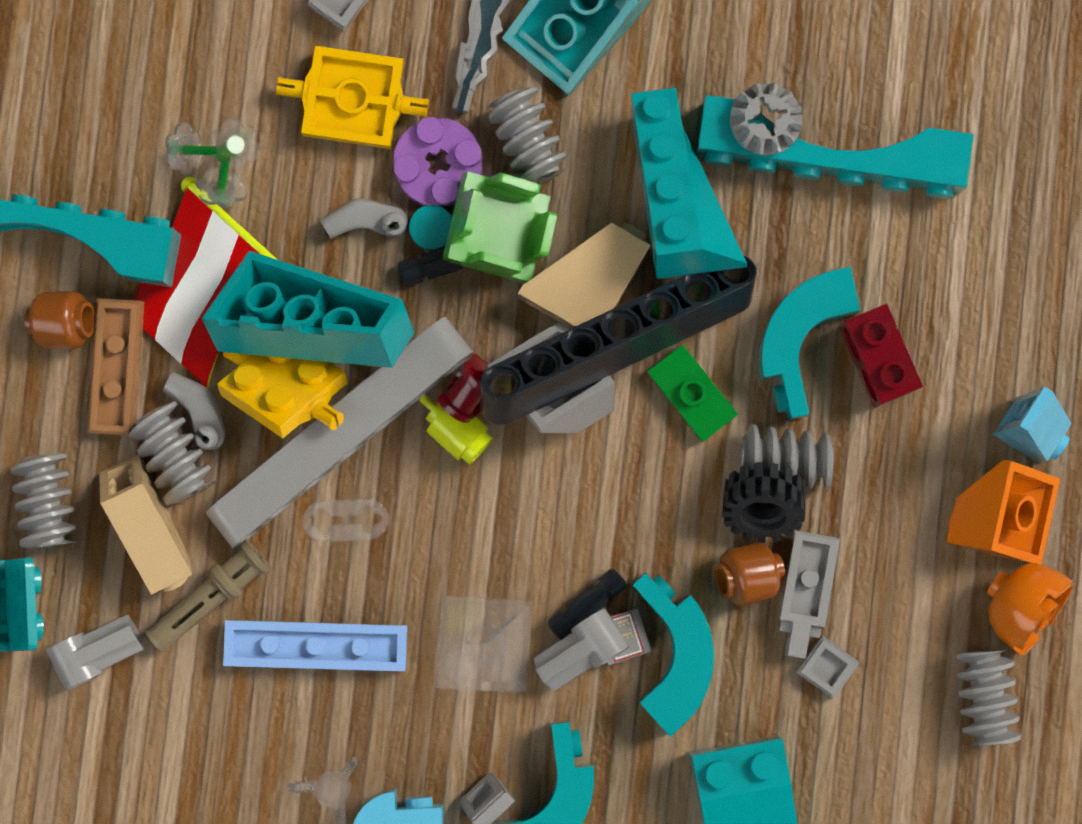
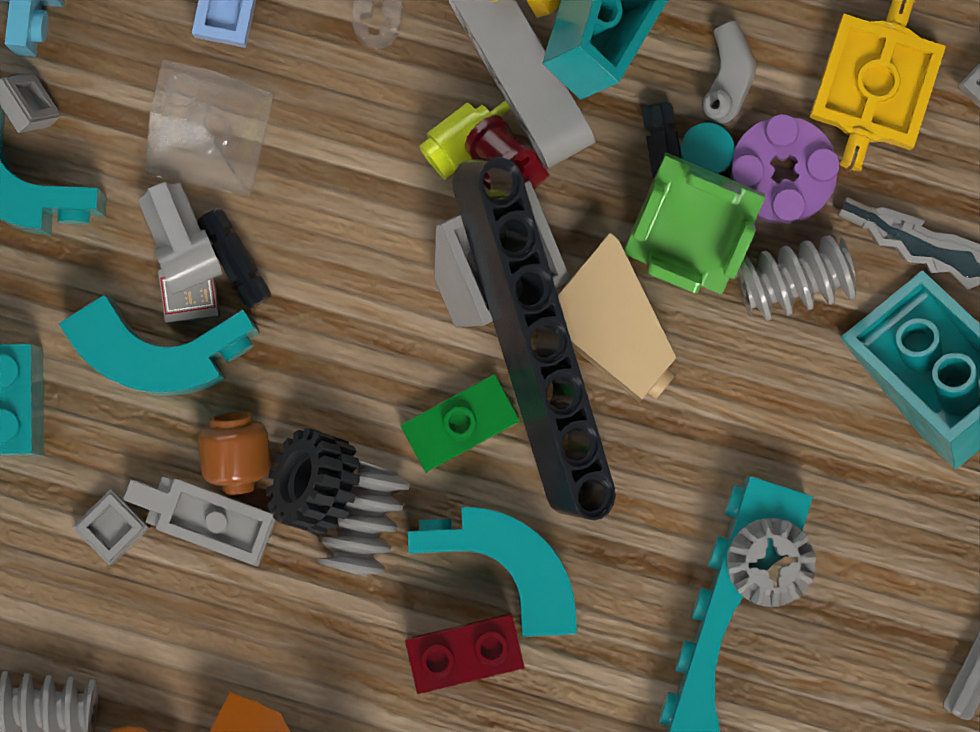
camera: 105 degrees right, 0 degrees up
(680, 205) = (687, 442): teal wedge -> none

